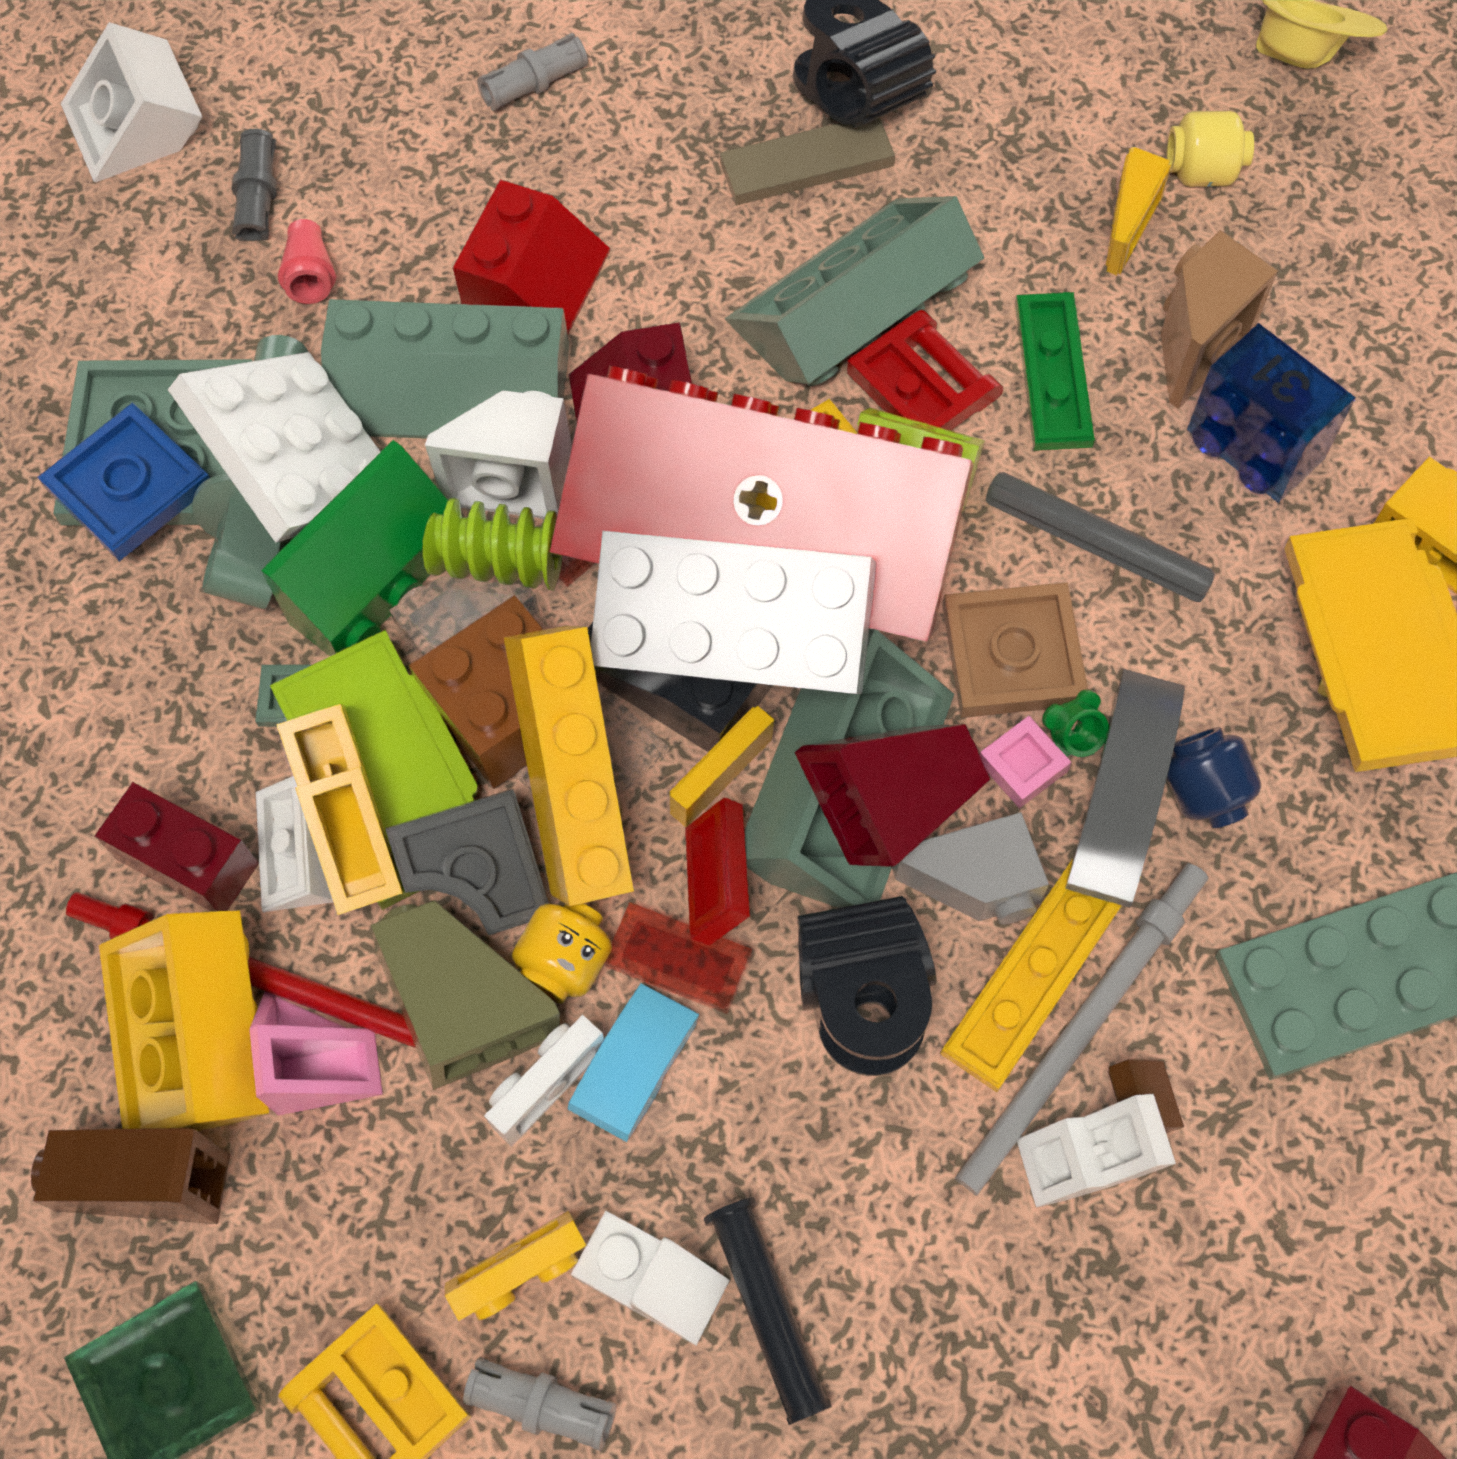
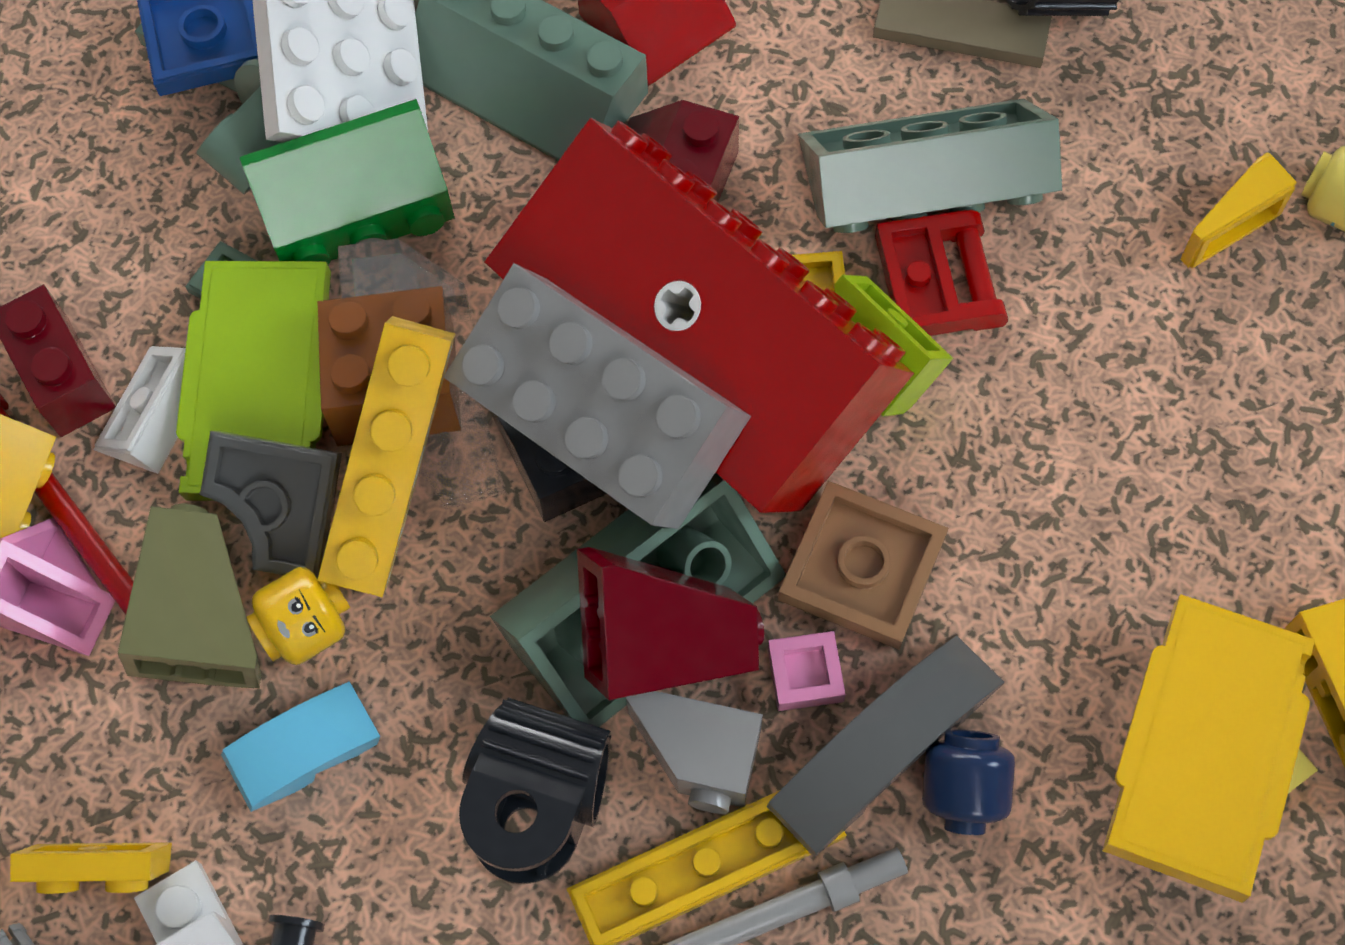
camera: 30 degrees right, 0 degrees up
(340, 808) = (189, 391): yellow slope -> none
(491, 546) = (445, 231): lime piece -> none
(505, 453) = (505, 150): white slope -> none
(525, 1098) = (194, 725): white plate -> none
(665, 956) = (397, 677): clear red tile -> none
(717, 872) = (467, 619): red tile -> none
(721, 765) = (533, 528): yellow tile -> none
(1054, 371) = (1067, 328): green tile -> none
(1089, 731) = (874, 680): green plate -> none
(1100, 537) = (1013, 504): dark grey axle -> none
(1210, 310) = (1246, 345): medium nougat slope -> none
(1268, 413) = (1236, 468): clear blue brick -> none

